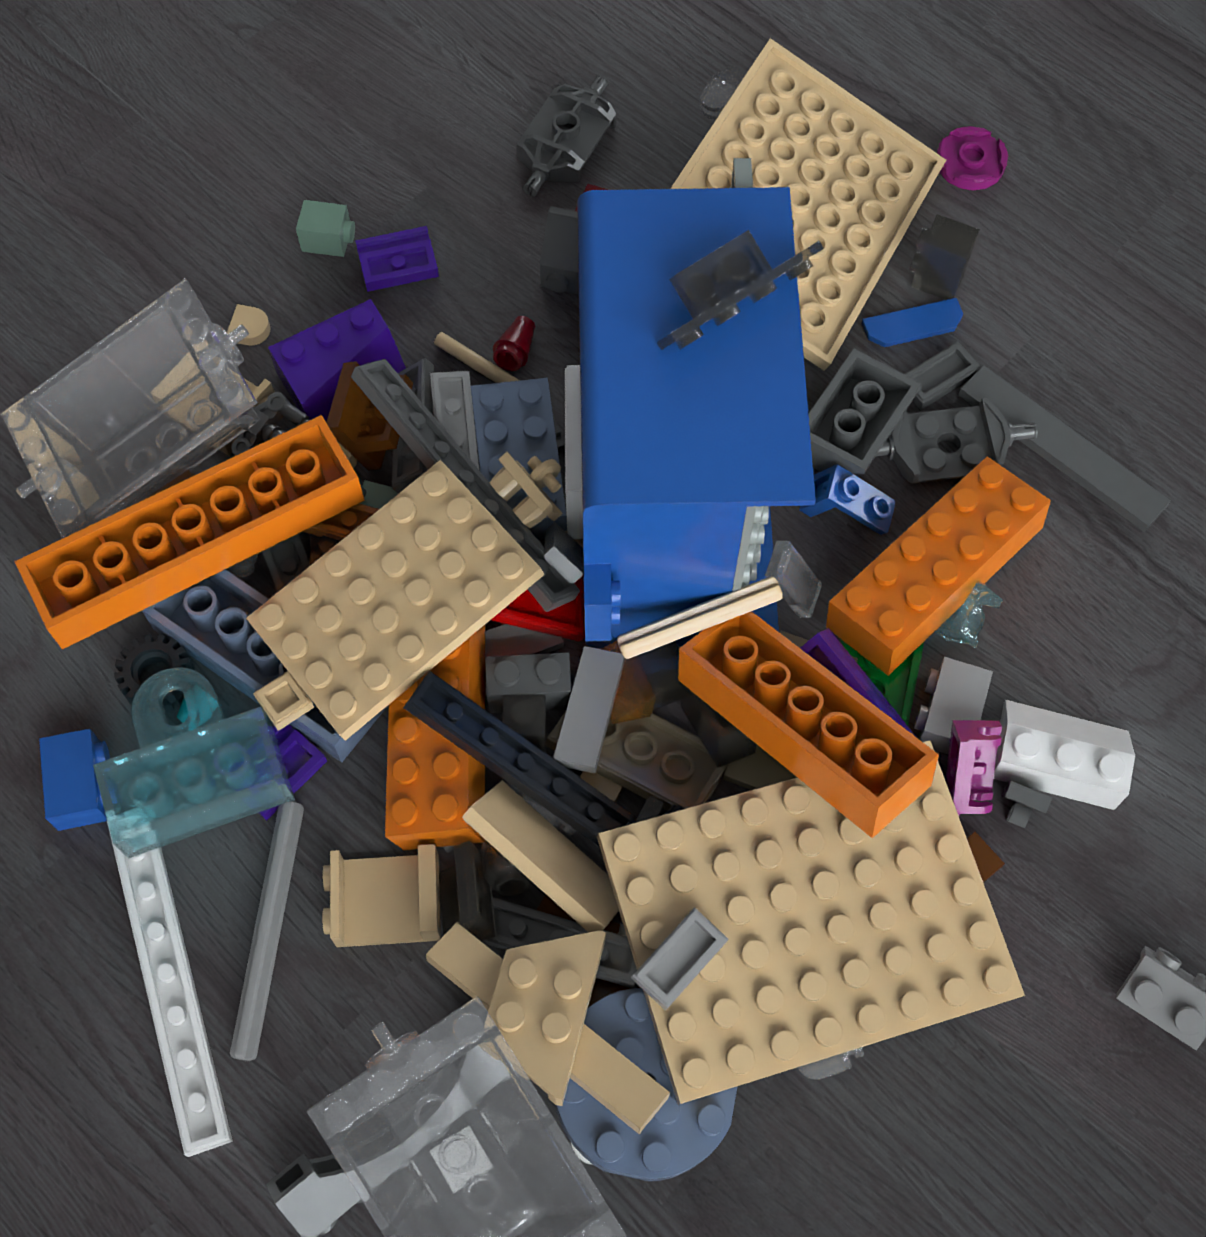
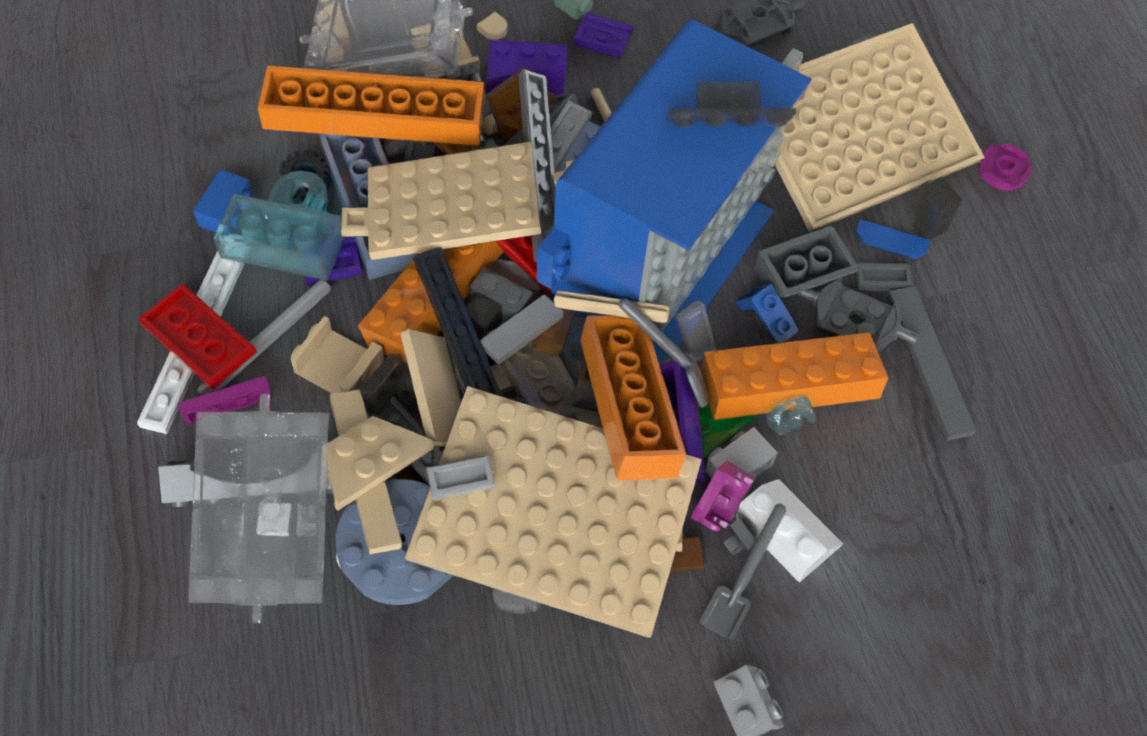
camera: 30 degrees right, 5 degrees down
(179, 985) = (197, 336): none -> red tile
(281, 1047) = (226, 399): none -> magenta tile
(825, 628) = (690, 364): none -> dark grey piece
(1064, 895) = (727, 606): none -> dark grey piece

